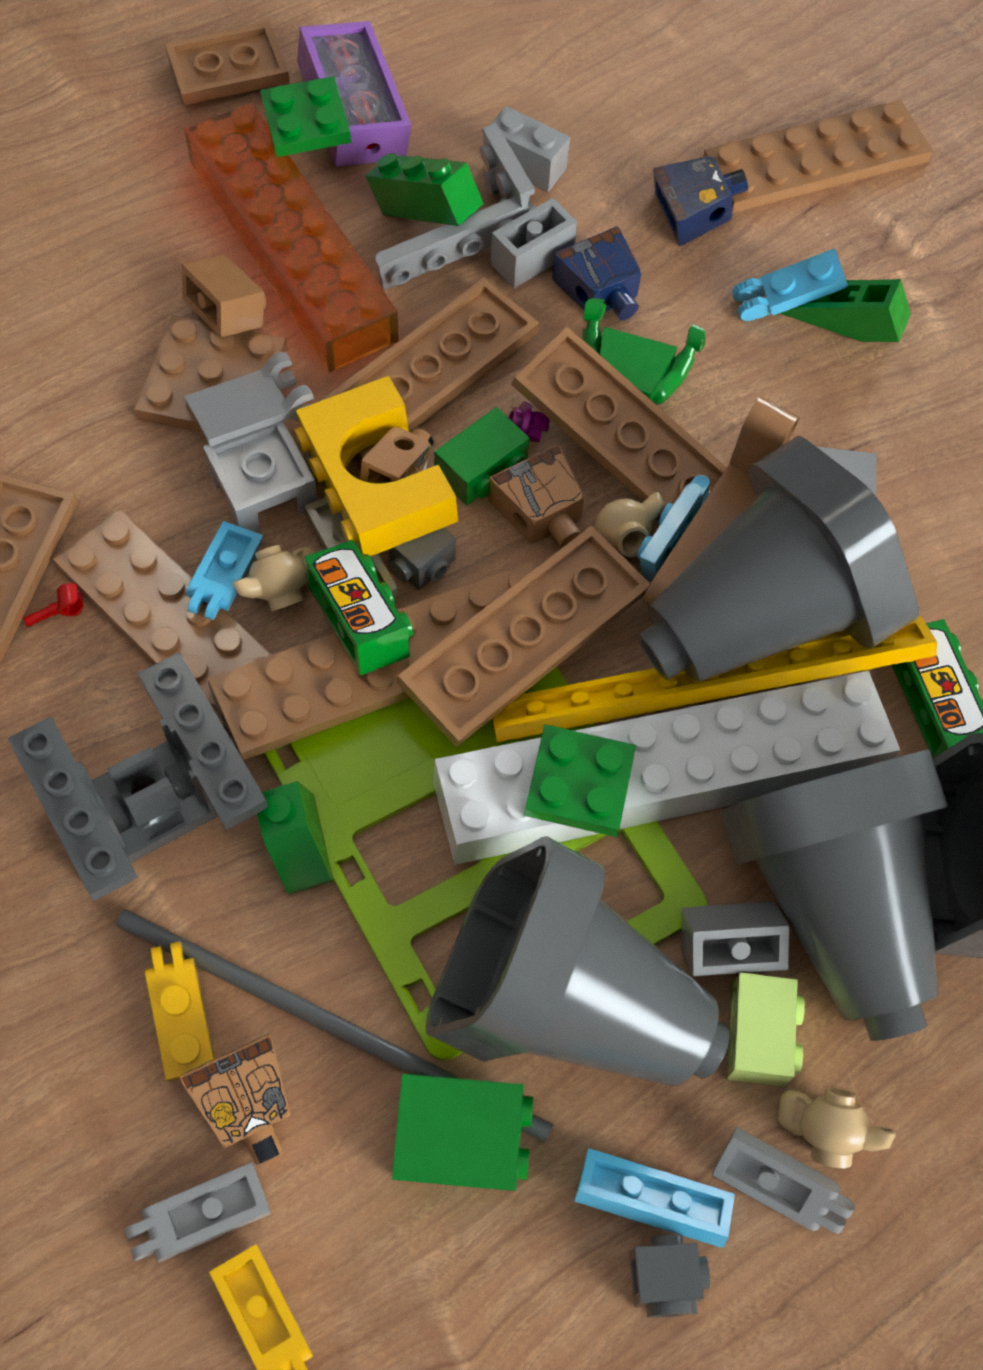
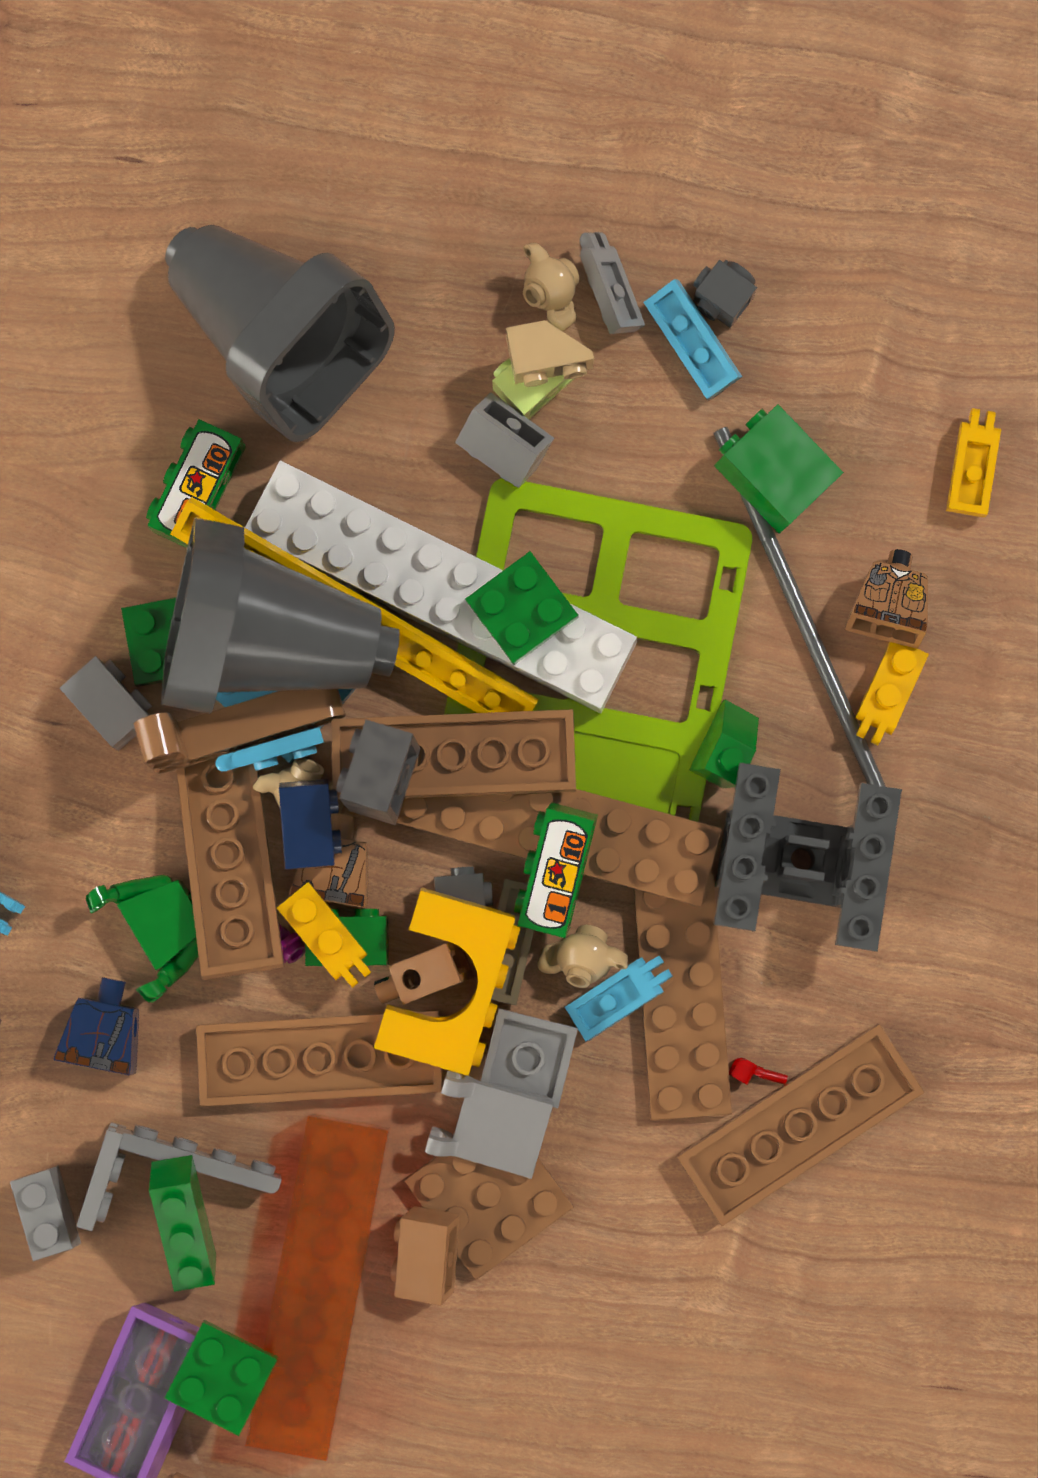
camera: 135 degrees left, 20 degrees up
(200, 1214) = (967, 554): light grey hinge -> none
(501, 432) = (324, 934): none -> yellow hinge
(529, 242) = (133, 1104): light grey brick -> none
(569, 978) = (648, 495): dark grey cone -> none
(572, 545) = (378, 771): none -> flat silver brick
(593, 484) = (308, 823): none -> dark blue brick
(780, 1038) = (543, 352): none -> tan slope
(854, 882) = (400, 412): dark grey cone -> none

